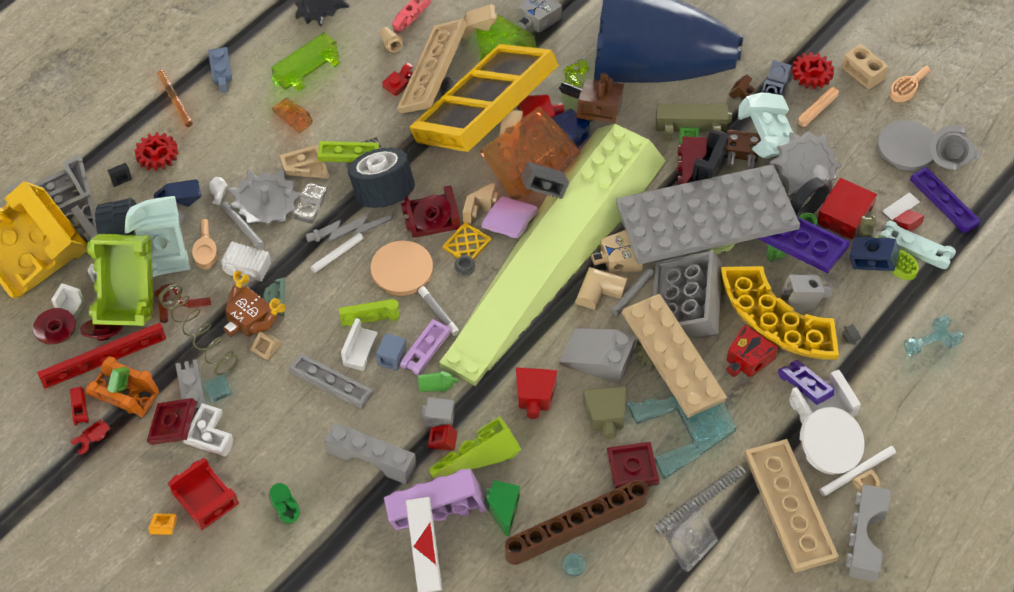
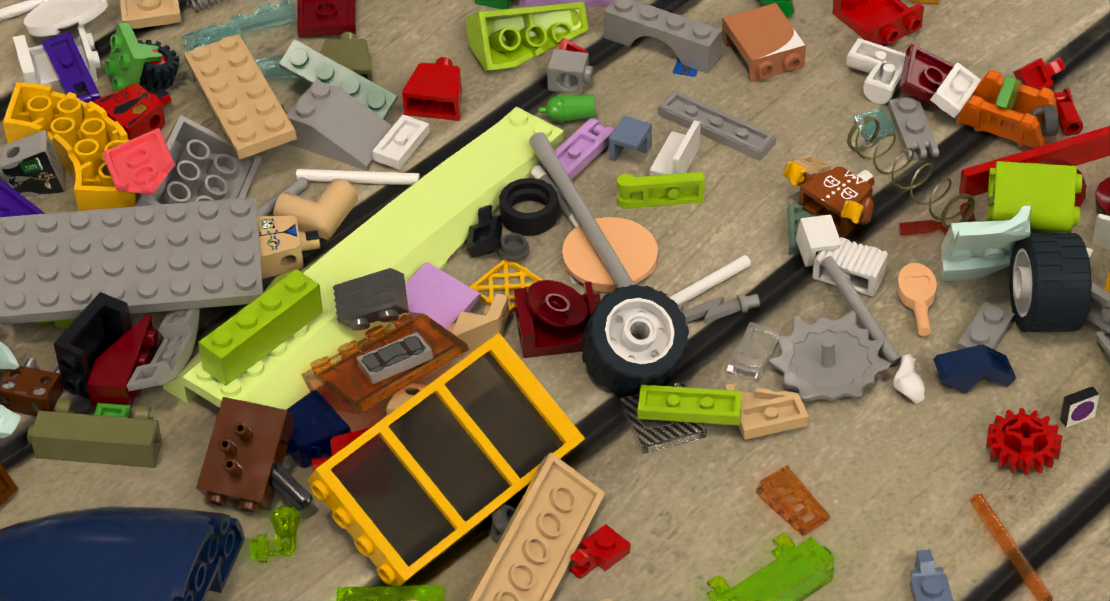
camera: 175 degrees left, 10 degrees down
(94, 373) = (1049, 119): none -> dark grey tile
(155, 403) = (955, 90): none -> white plate
(265, 269) = (816, 235): none -> white panel
(294, 452) = (765, 41): none -> nougat panel
(447, 324) = (548, 156): none -> light grey piece
(461, 308) = (528, 190): none -> black tyre
(486, 271) = (486, 234): none -> black plate
(522, 135) = (394, 358): none -> tile
(553, 344) = (400, 142): none -> white plate
(587, 318) = (363, 177): none -> white bar
(606, 379) = (313, 66): none -> plate
(607, 159) = (261, 326): none -> lime wedge
(665, 158) = (179, 334): none -> light grey slope
(721, 273) = (140, 163): none -> coral tile
(755, 390) = (139, 62): none -> bright green plate

